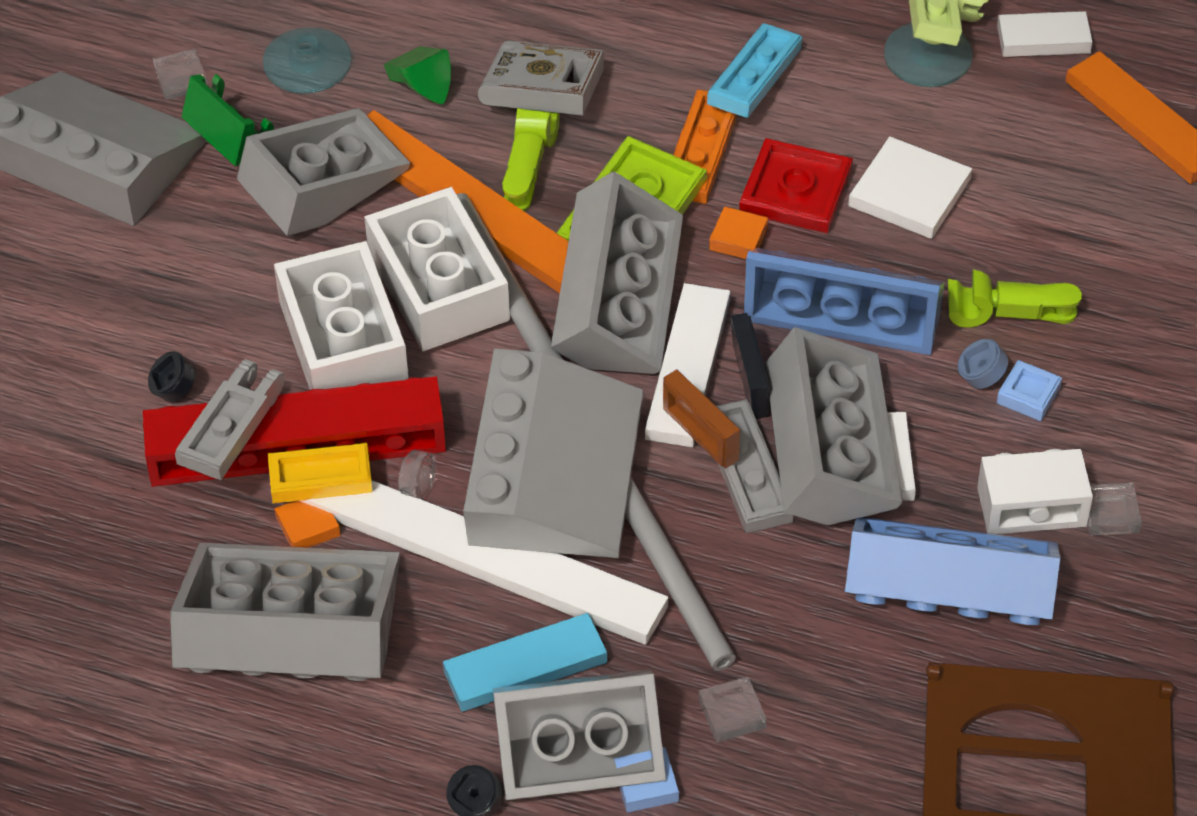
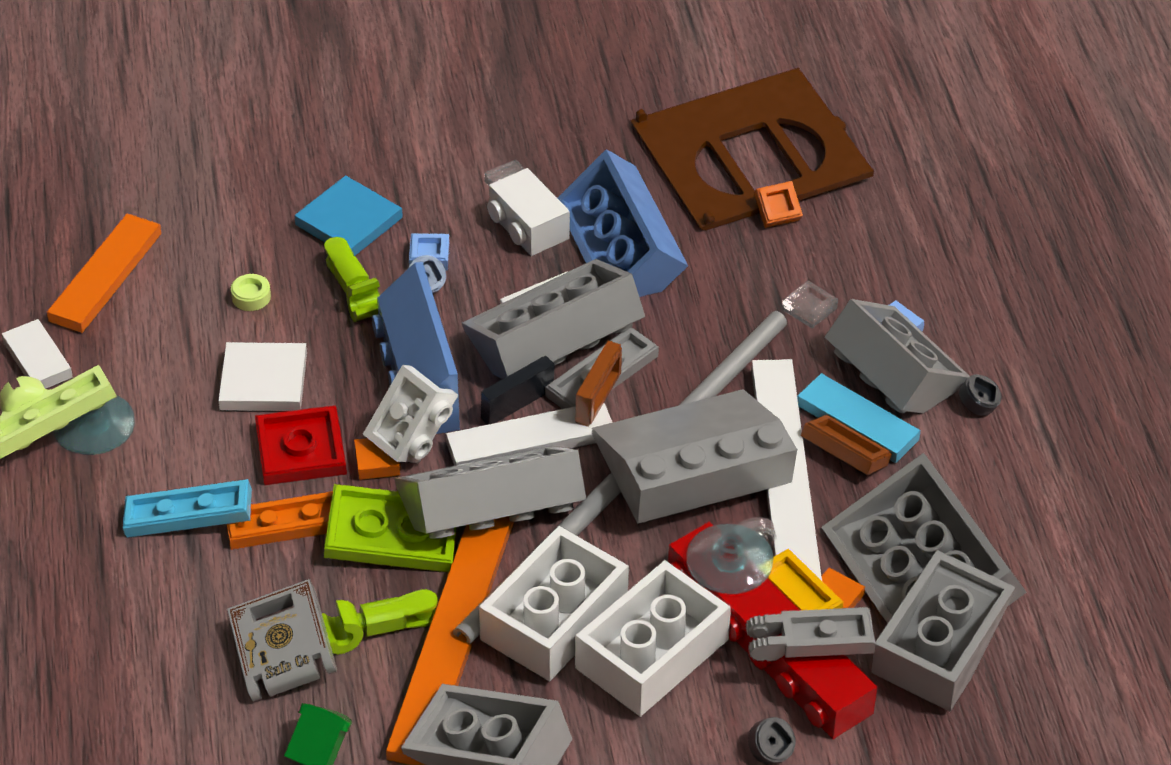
camera: 120 degrees left, 5 degrees down
(164, 536) = (941, 630): none -> light grey slope
(384, 426) = (729, 558): none -> clear light blue dish
(487, 620) = (846, 444): none -> dark orange tile
(729, 240) = (410, 416): none -> white bracket
(915, 752) = (778, 204): none -> orange tile
(1048, 220) = (250, 292): none -> yellowish green tile
(1127, 340) = (349, 213): none -> dark azure tile

